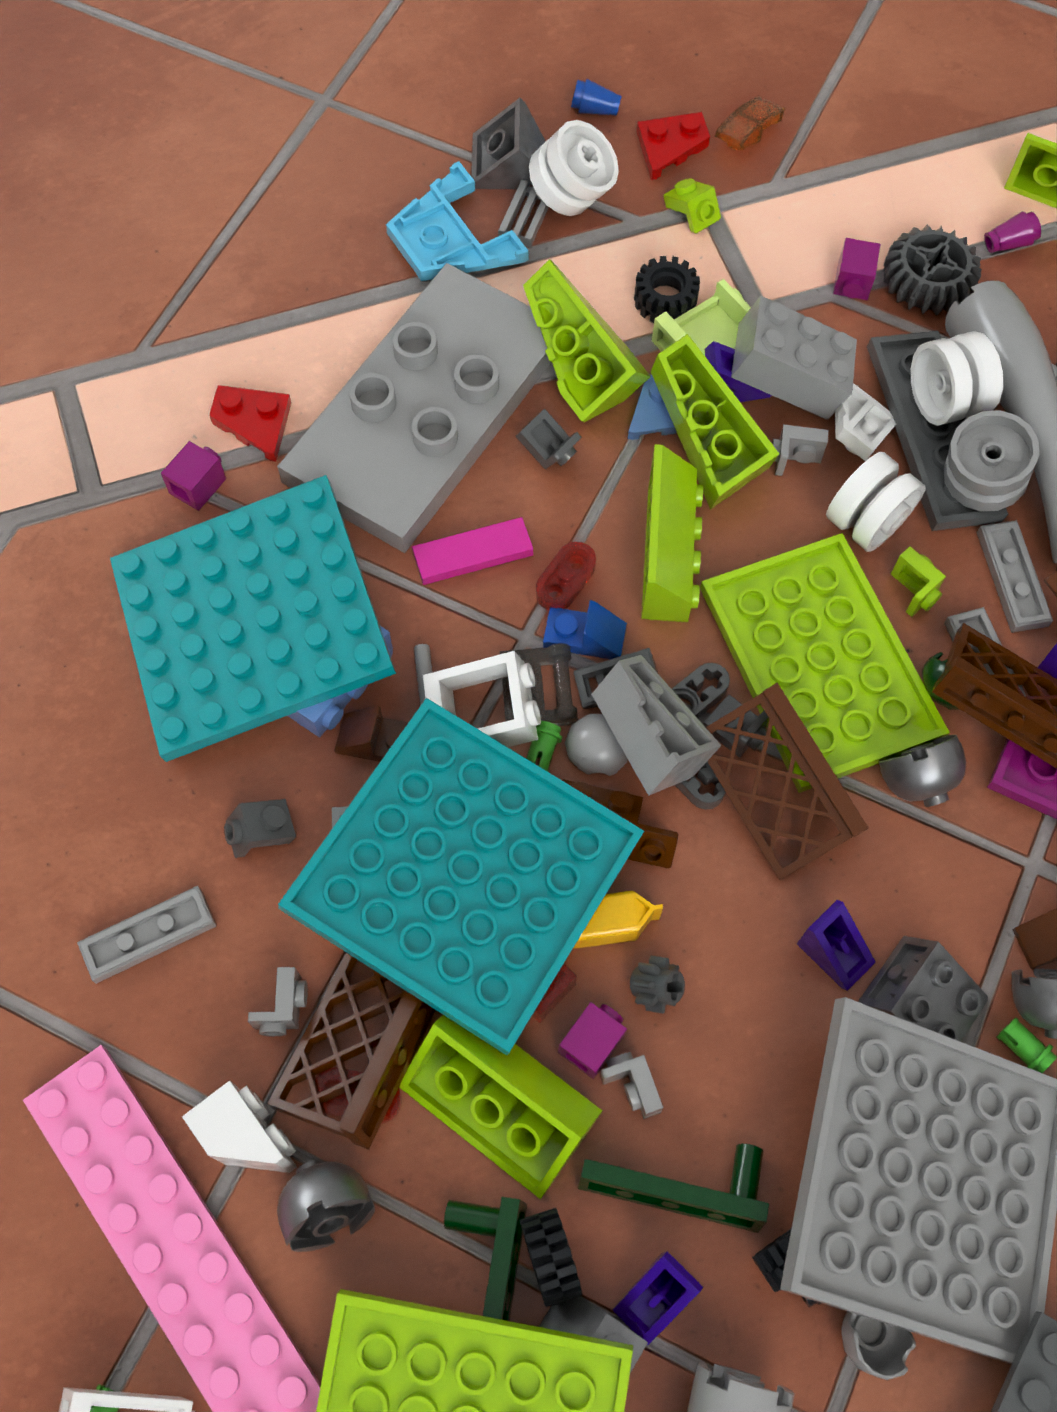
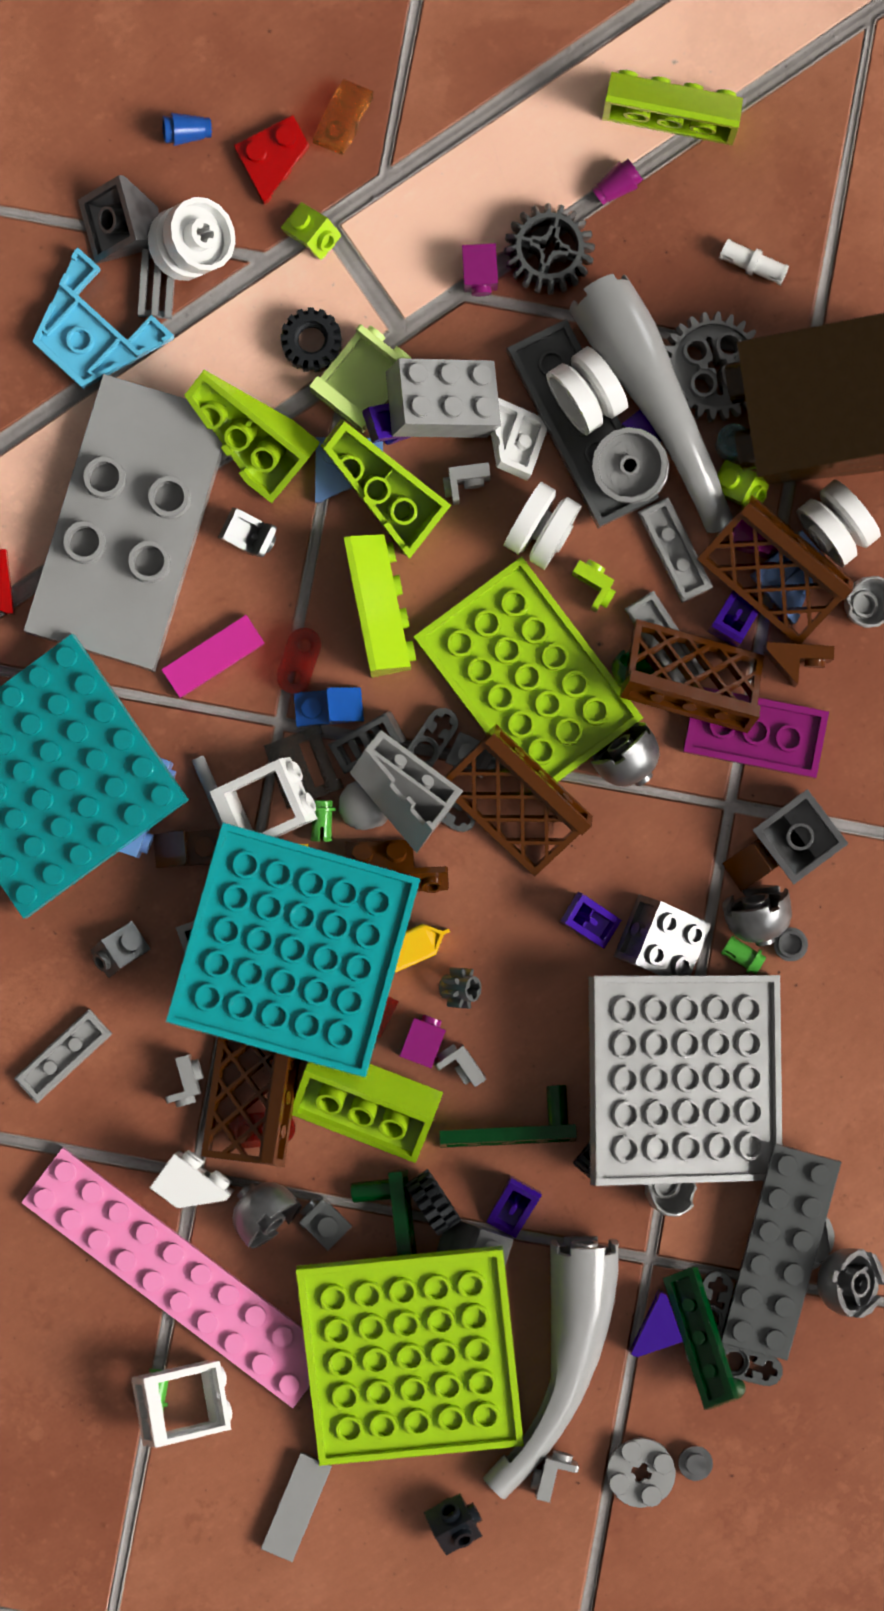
camera: 15 degrees left, 20 degrees up
(397, 1244) = (324, 1222): none -> dark grey bracket

